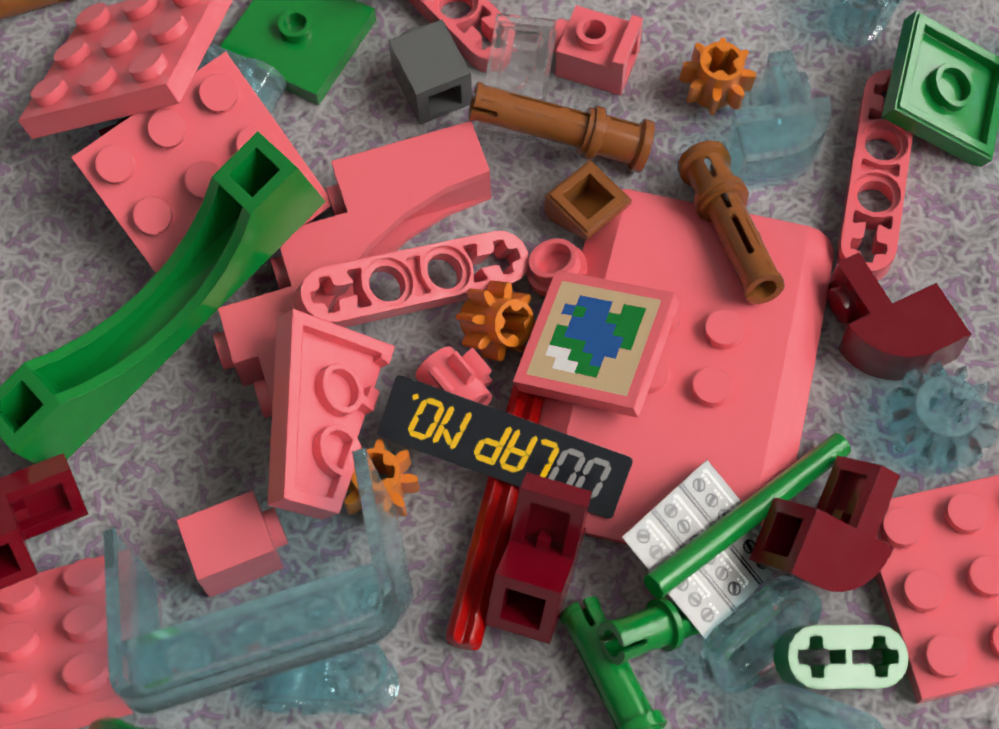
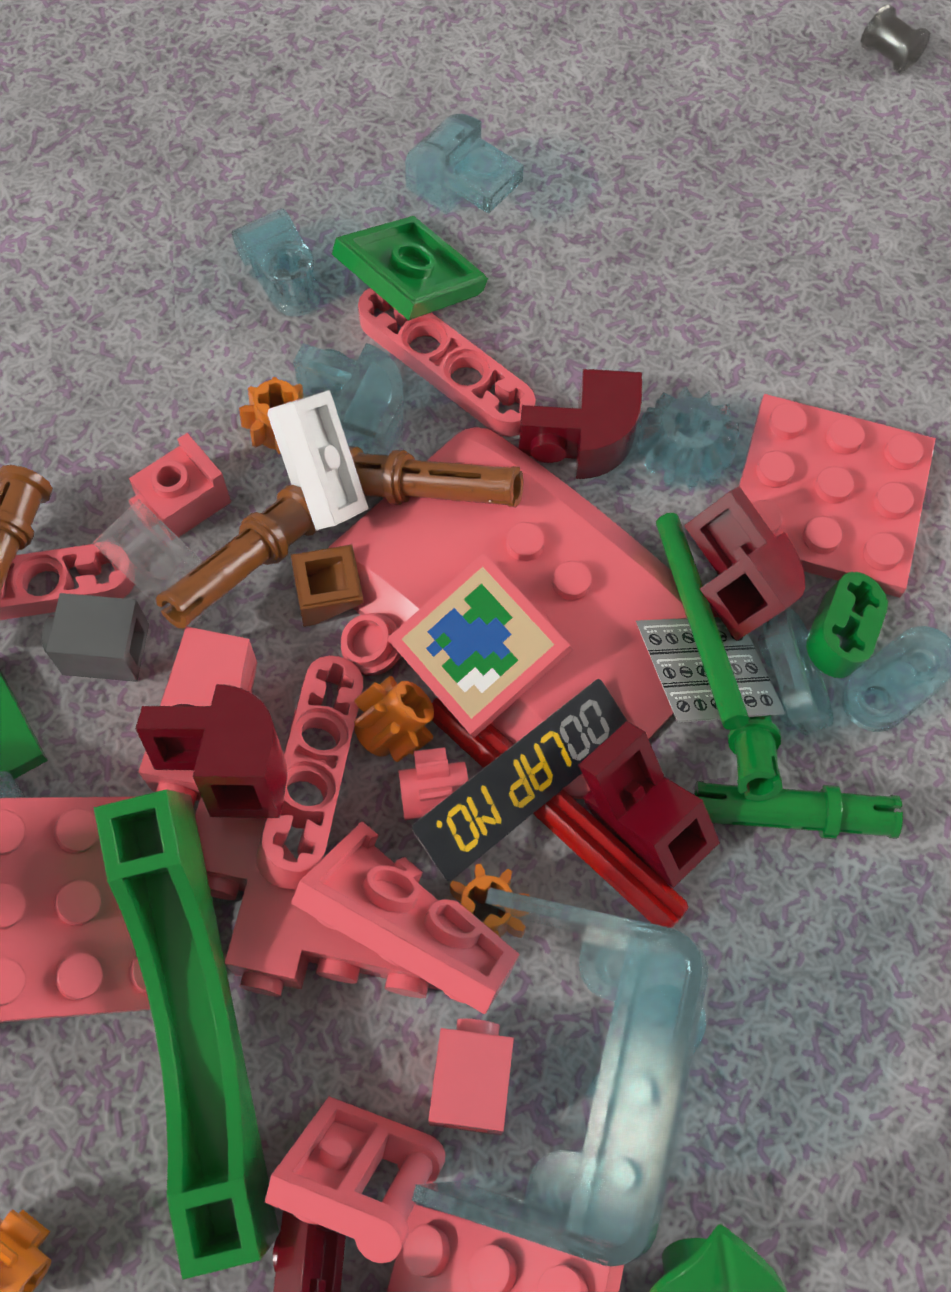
camera: 65 degrees left, 0 degrees up
(117, 472) = (332, 1165): none -> coral plate
(372, 205) = (227, 746): none -> dark red brick
(680, 123) = (318, 458): none -> white panel

